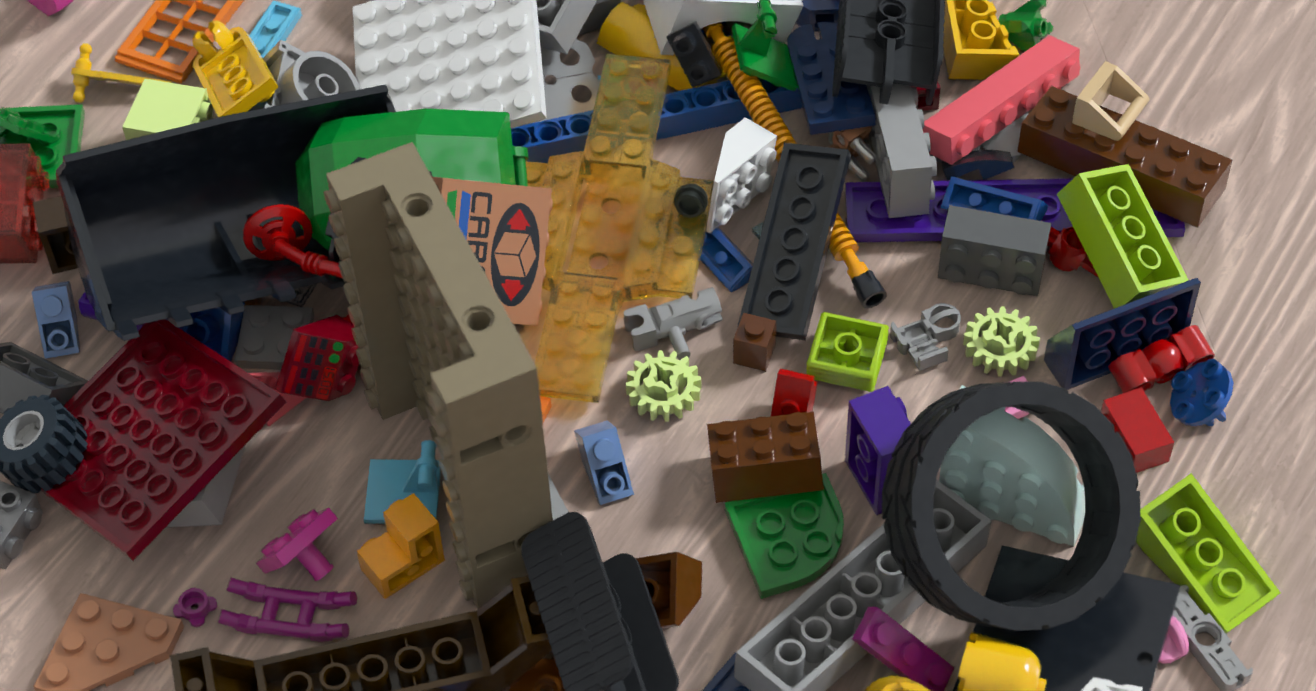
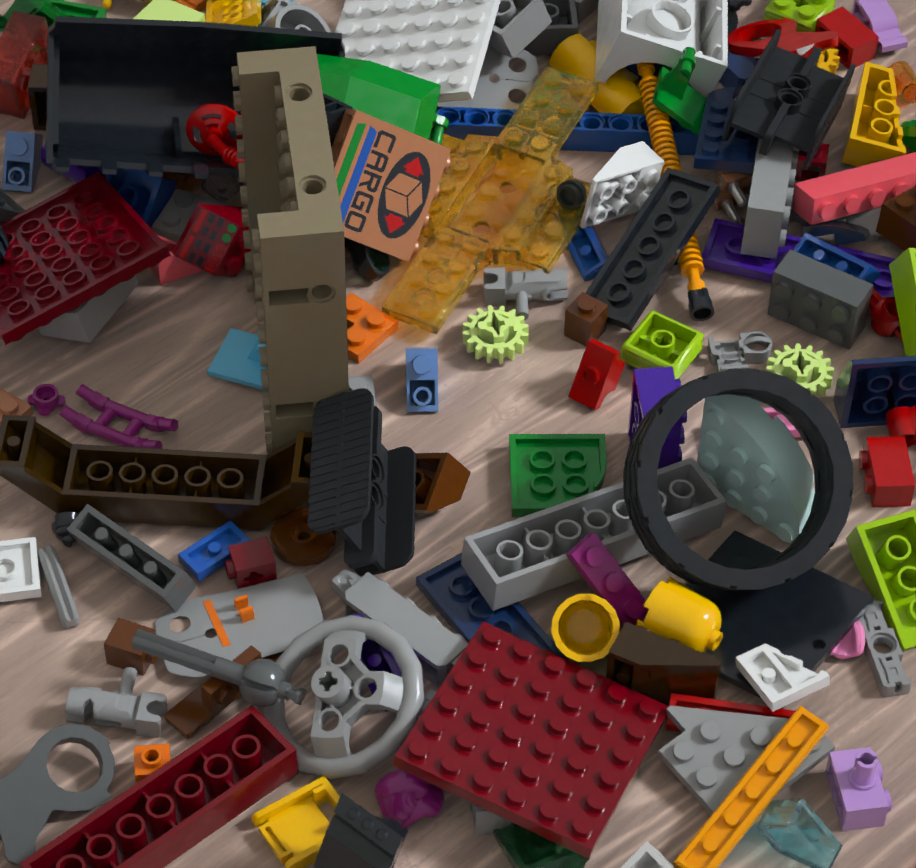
camera: 15 degrees right, 5 degrees down
(300, 545) = (145, 372): dark pink plate -> none
(406, 549) = (230, 401): light orange brick -> none
(694, 54) = (620, 84): black hips -> none
(765, 457) = (555, 406): reddish brown brick -> none

